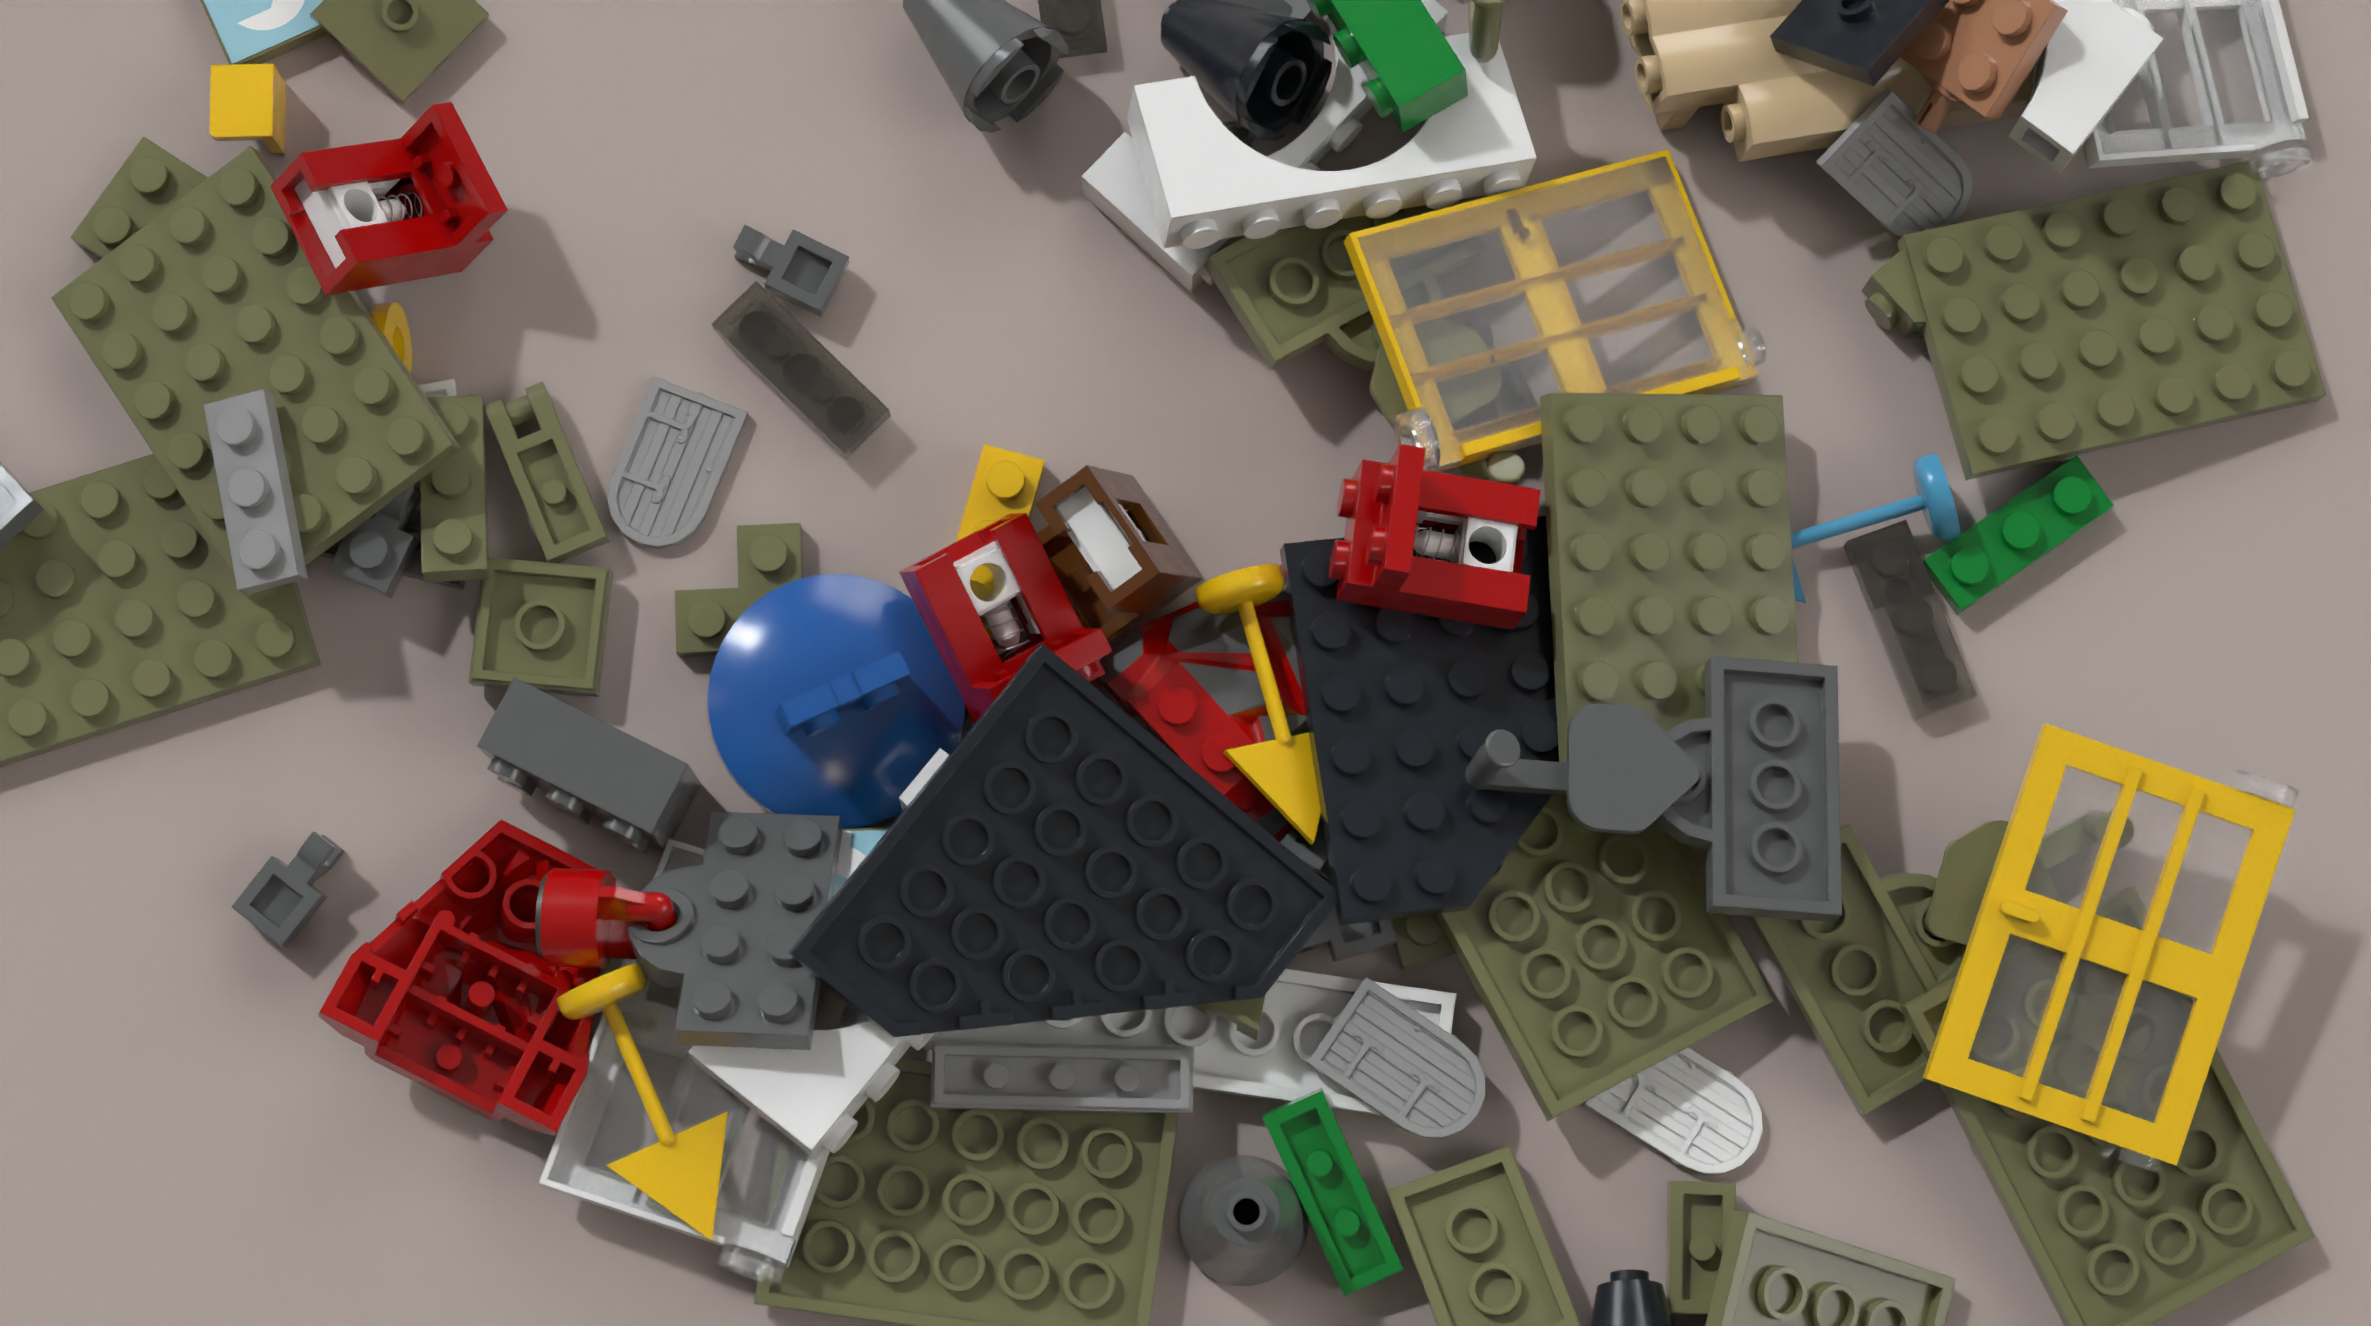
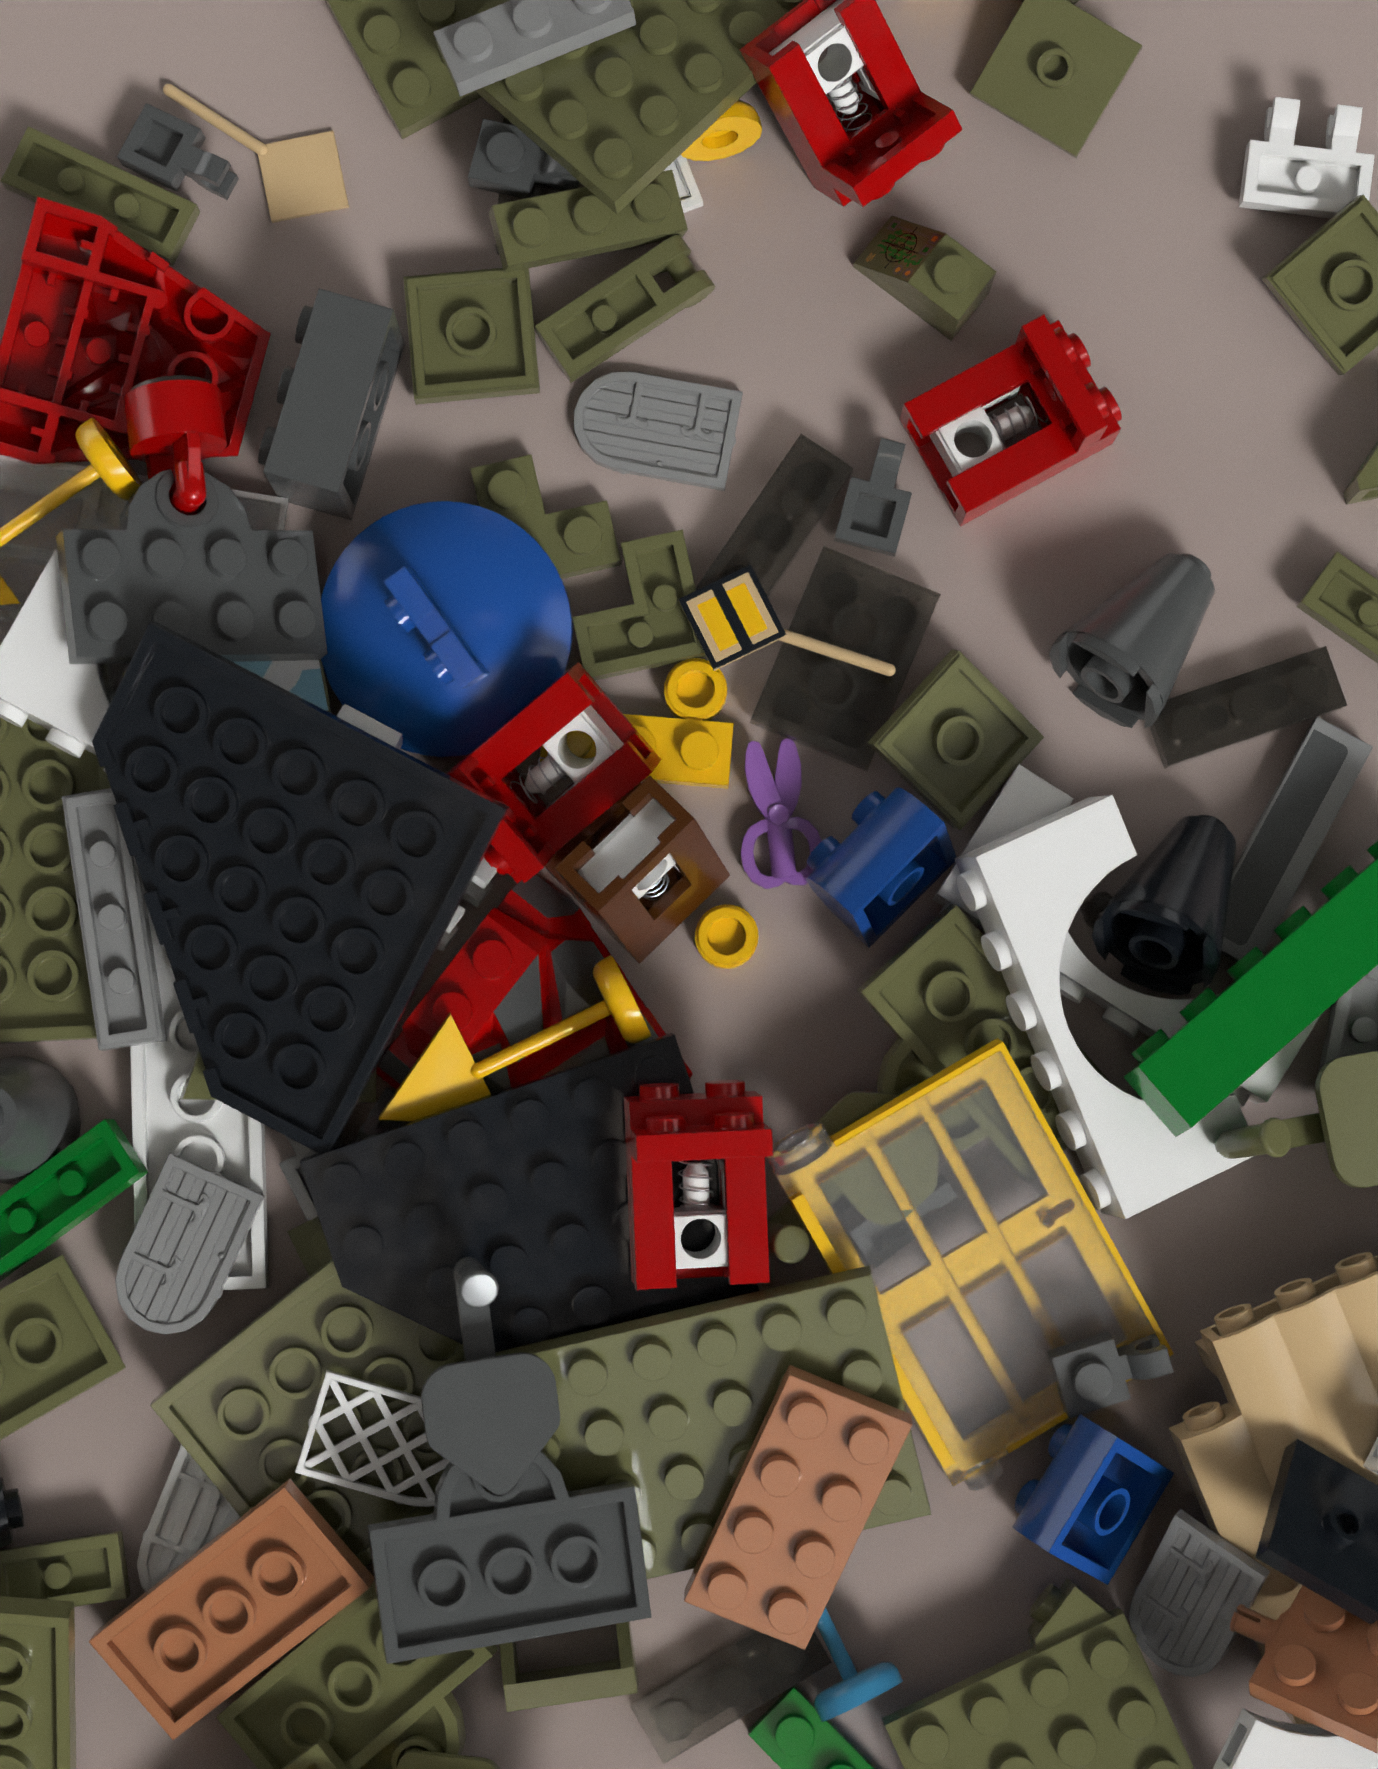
camera: 80 degrees right, 5 degrees up
(289, 1002) = (77, 179): none -> olive plate
(333, 774) = (298, 173): none -> tan piece
(575, 176) = (927, 273): none -> olive slope
(726, 76) = (1059, 394): none -> red brick
(867, 492) = (652, 628): none -> olive plate
(884, 417) = (738, 619): none -> piece
(941, 325) = (831, 701): none -> clear smoke plate
(943, 477) = (695, 690): none -> yellow tile
(1042, 235) = (955, 739): none -> olive plate
(1067, 419) = (776, 803): none -> medium lavender piece
(1149, 325) = (882, 863): none -> blue brick
(1191, 492) = (726, 936): none -> yellow tile
(1657, 941) = (348, 1480): none -> white window
(1672, 220) = (1095, 1372): none -> dark grey plate
(1756, 512) = (797, 1507): none -> nougat plate
(1764, 1076) = (231, 1609): none -> nougat plate
(1789, 249) = (1090, 1498): none -> blue brick
(1886, 764) = (572, 1682): none -> olive tile

